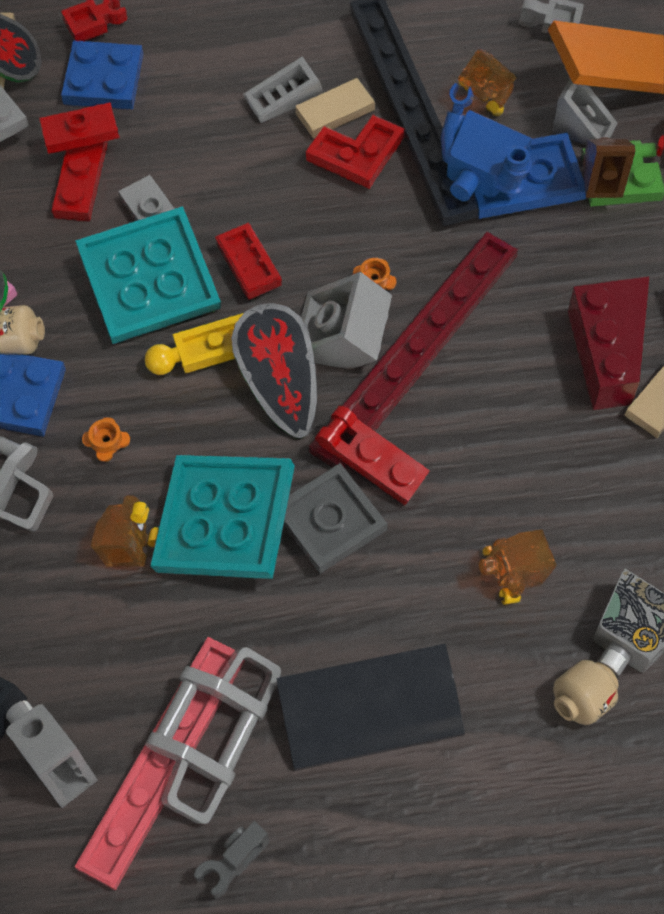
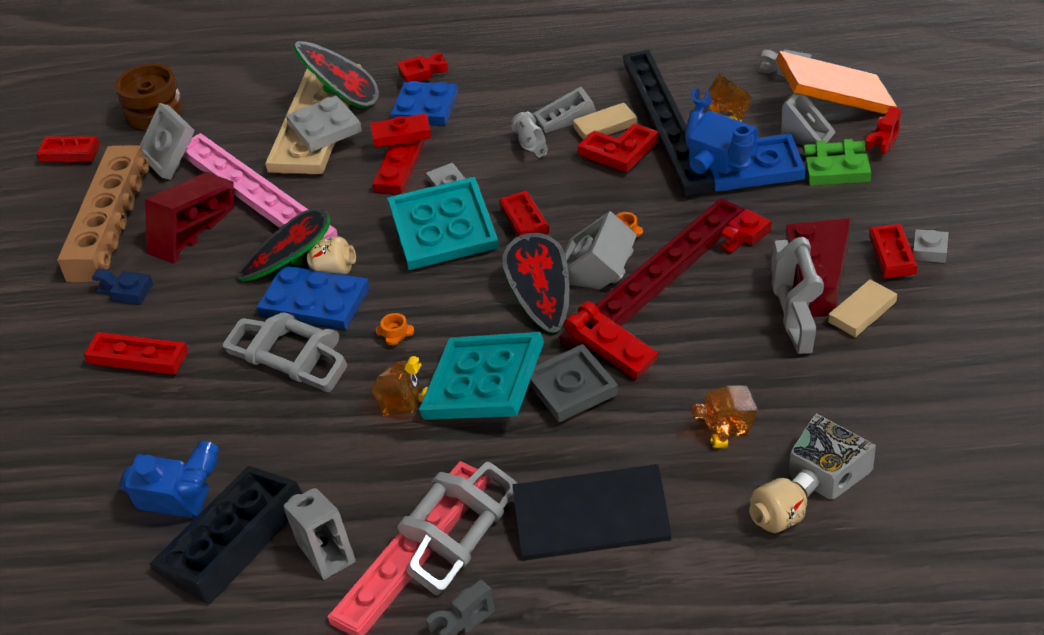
camera: 10 degrees right, 20 degrees down
(194, 348) = (472, 271): yellow plate -> none
(244, 132) = (530, 136): none -> light grey piece
(520, 277) = (746, 228): none -> red plate
(591, 417) = (795, 301): none -> light grey bar
(607, 167) = (819, 147): reddish brown slope -> none

